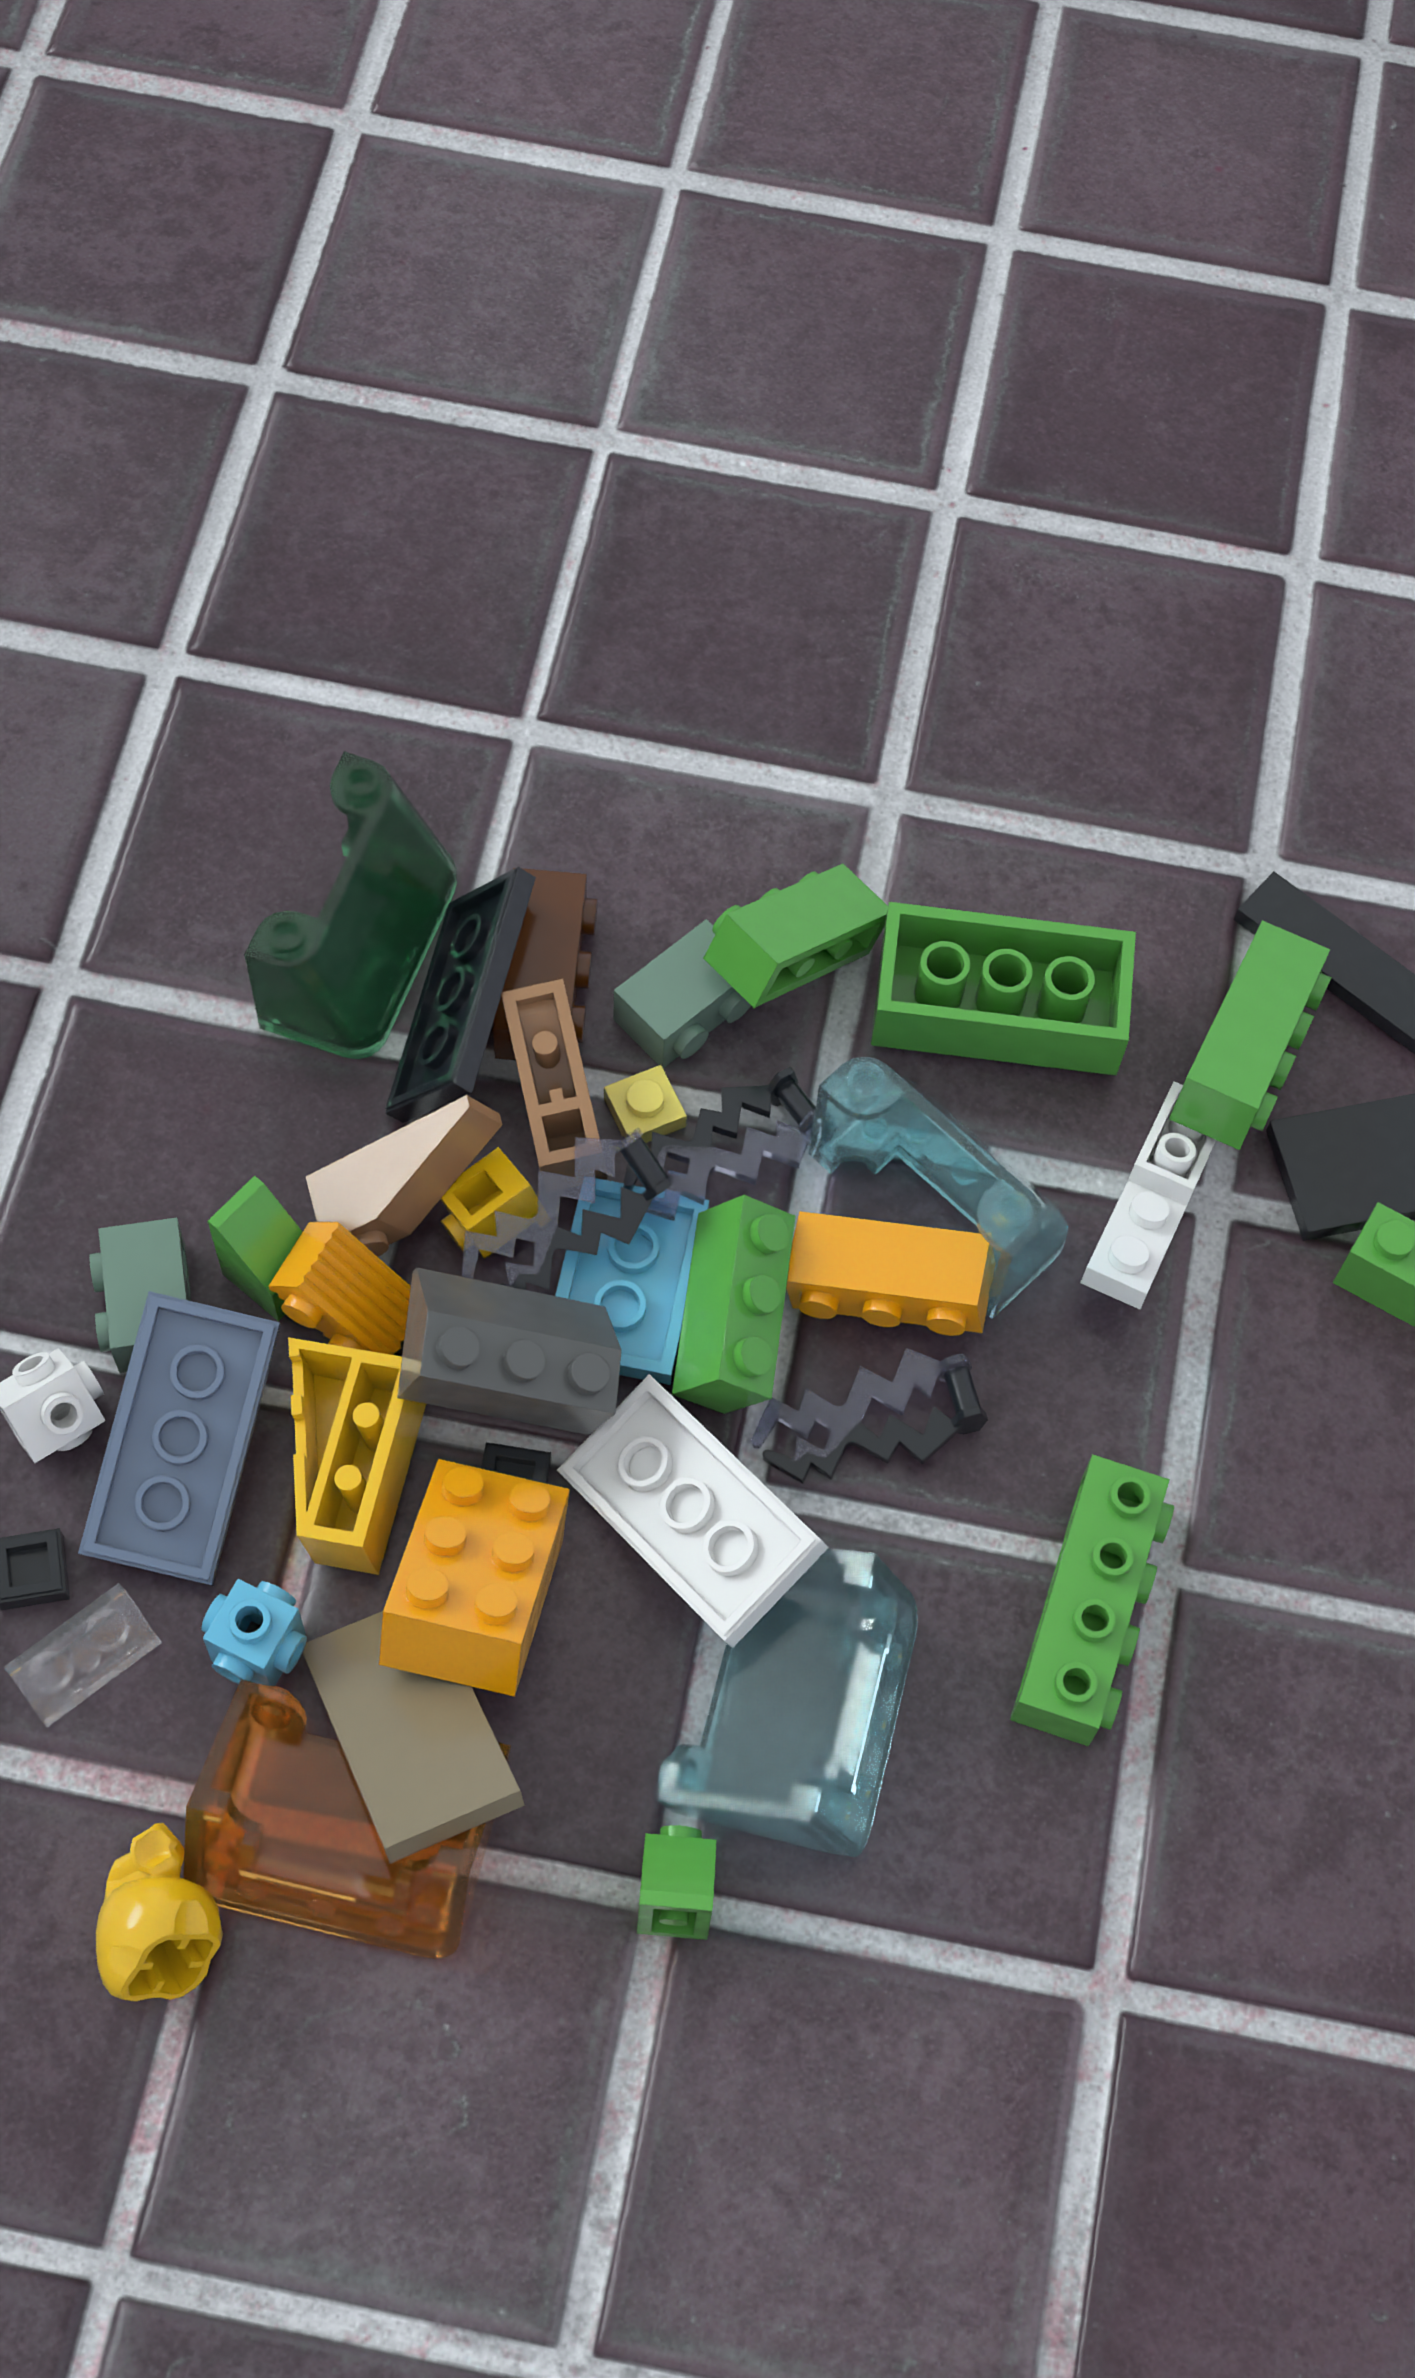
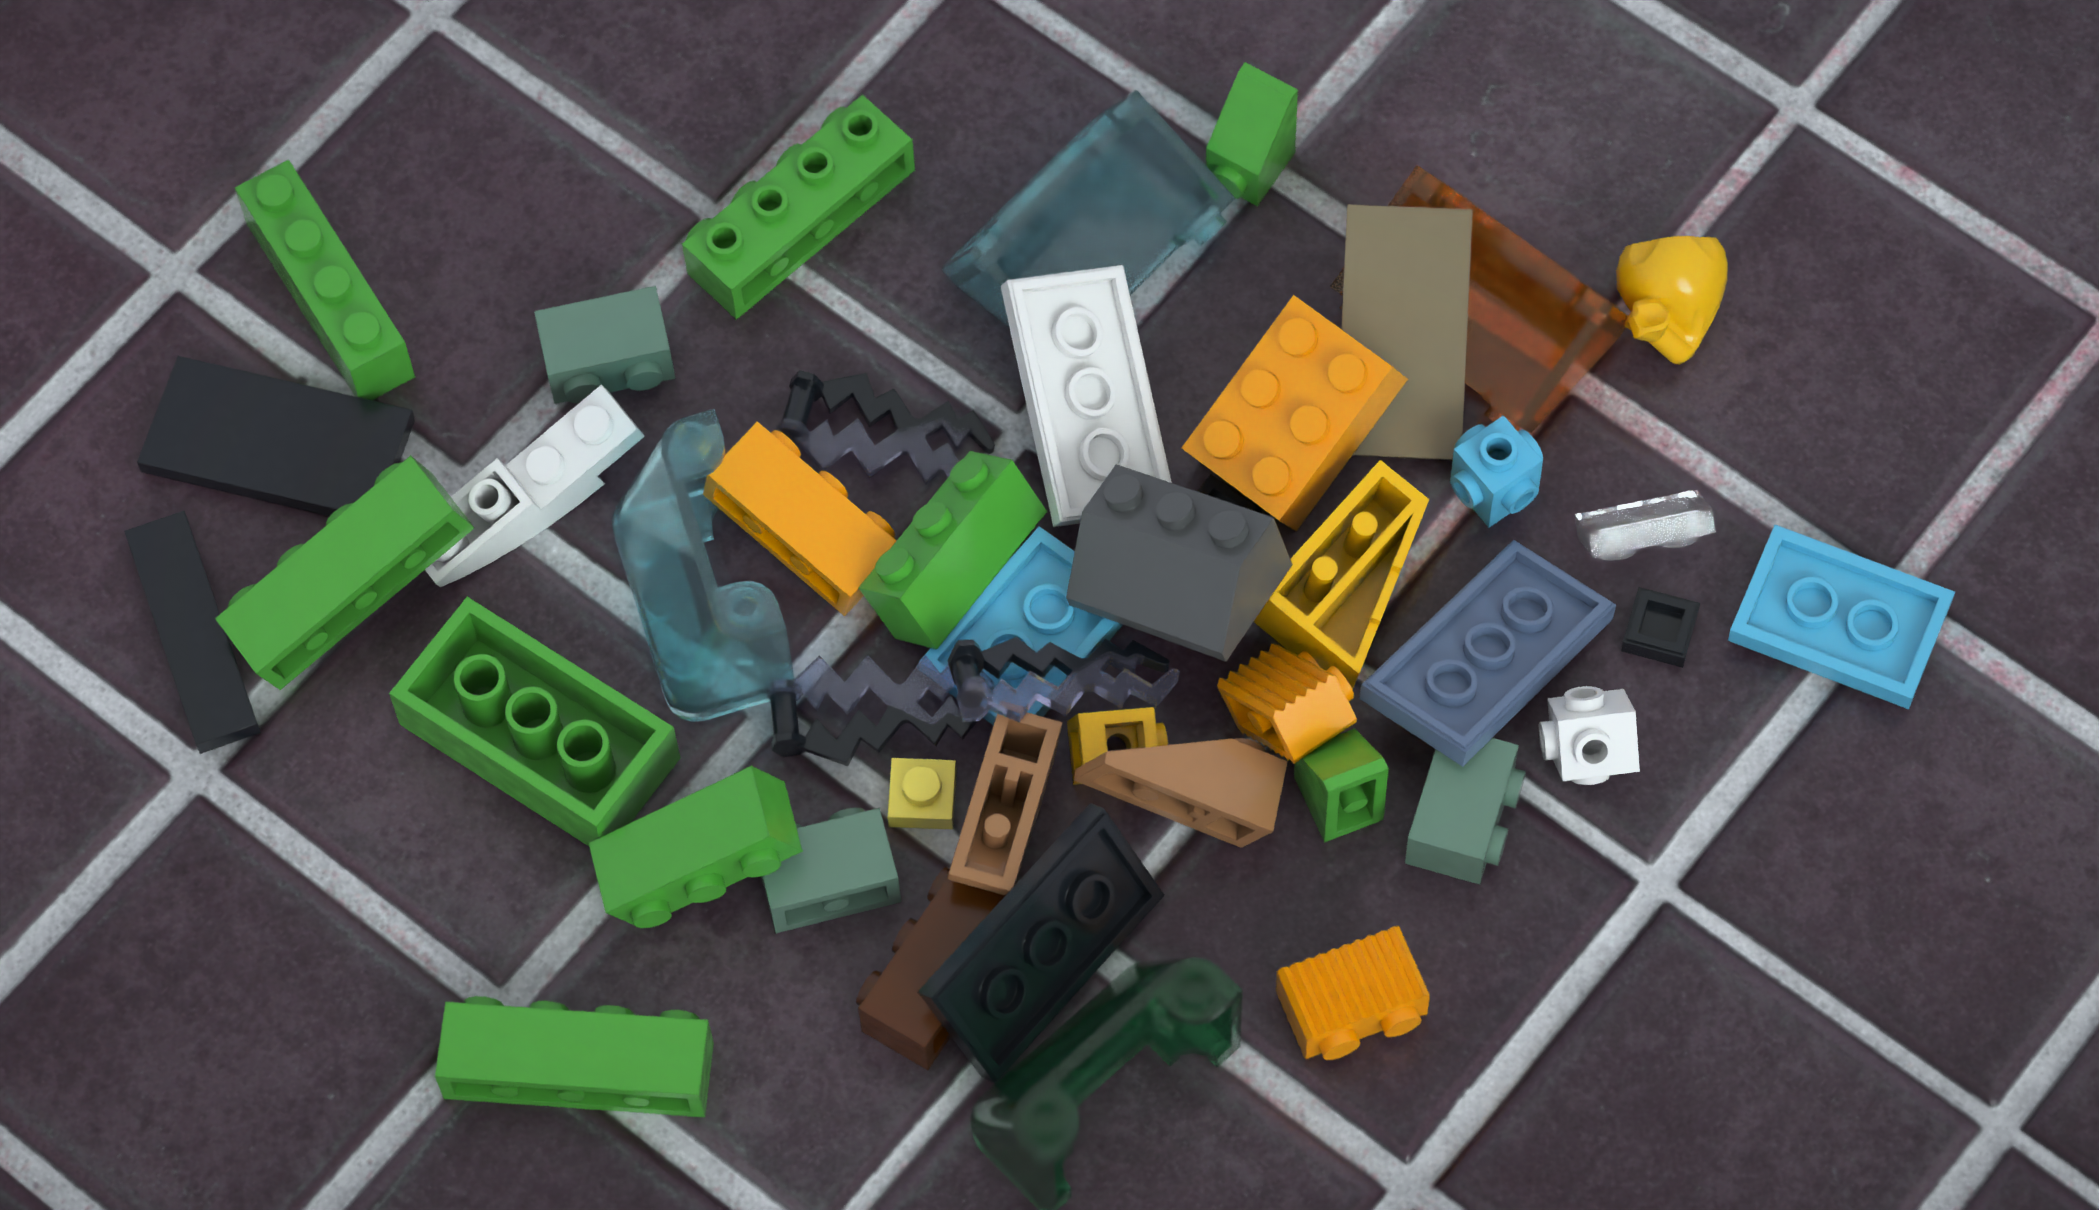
camera: 145 degrees left, 0 degrees up
(172, 1087) = (1353, 994): none -> light orange brick
(799, 765) = (575, 1057): none -> bright green brick
(1177, 1367) = (605, 342): none -> sand green brick

